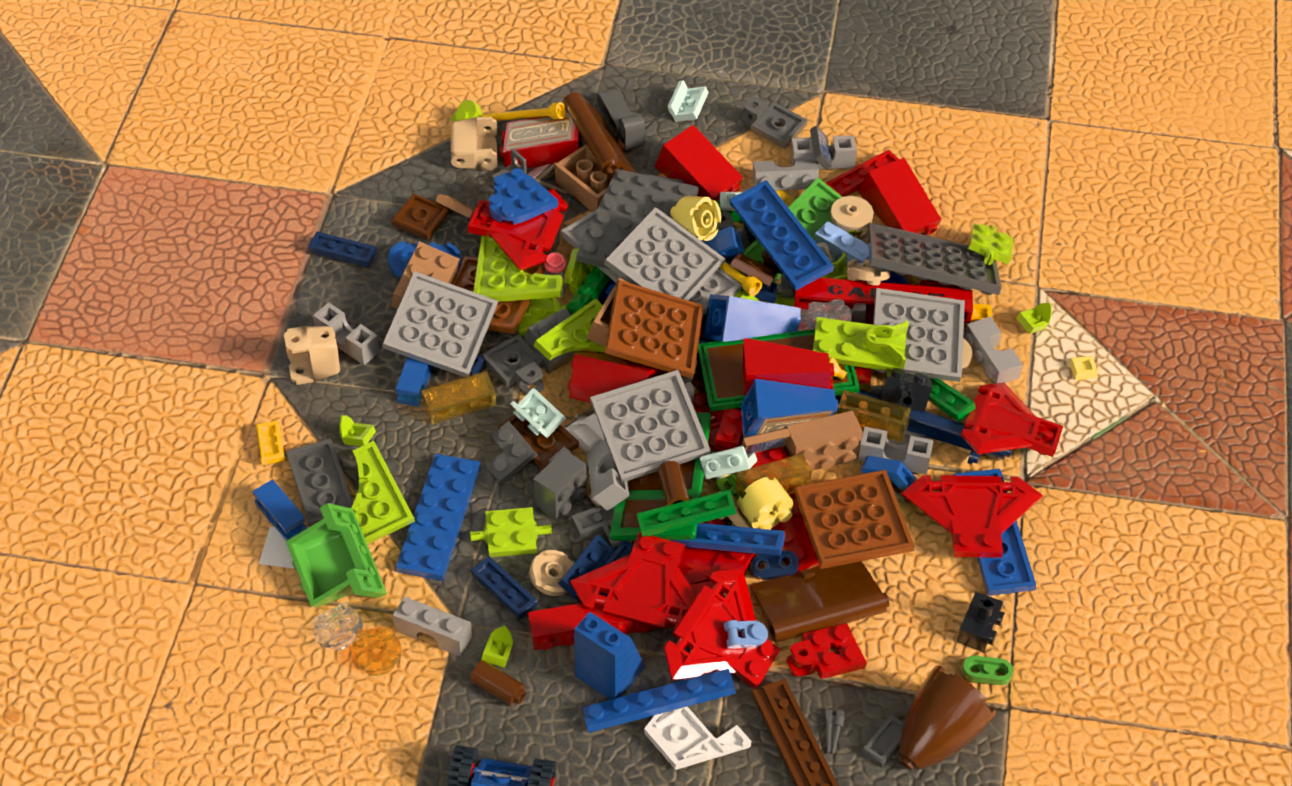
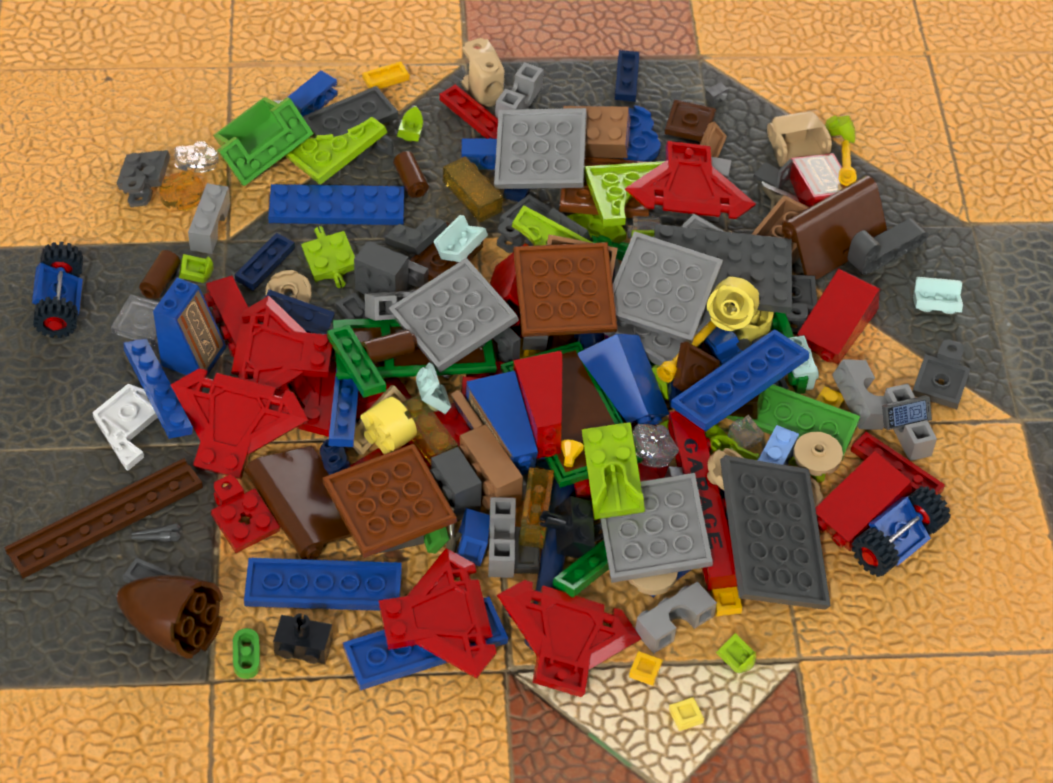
camera: 75 degrees right, 0 degrees up
(354, 378) = (470, 111): none -> red plate
(357, 685) = (141, 173): none -> dark grey plate
(389, 190) = (716, 93): none -> flat silver piece
(423, 444) = (410, 174): none -> reddish brown brick
(519, 197) = (723, 174): blue plate -> none
(551, 710) = (136, 320): none -> clear plate
(555, 263) = (651, 217): coral plate -> none
(752, 632) = (240, 442): medium blue plate -> none
(835, 462) = (457, 481): none -> dark grey brick
(919, 601) = (321, 583): none -> blue plate
(952, 203) = (900, 531): none -> plate
(991, 243) = (831, 595): lime plate -> none
(1039, 382) = (645, 668): none -> yellow plate

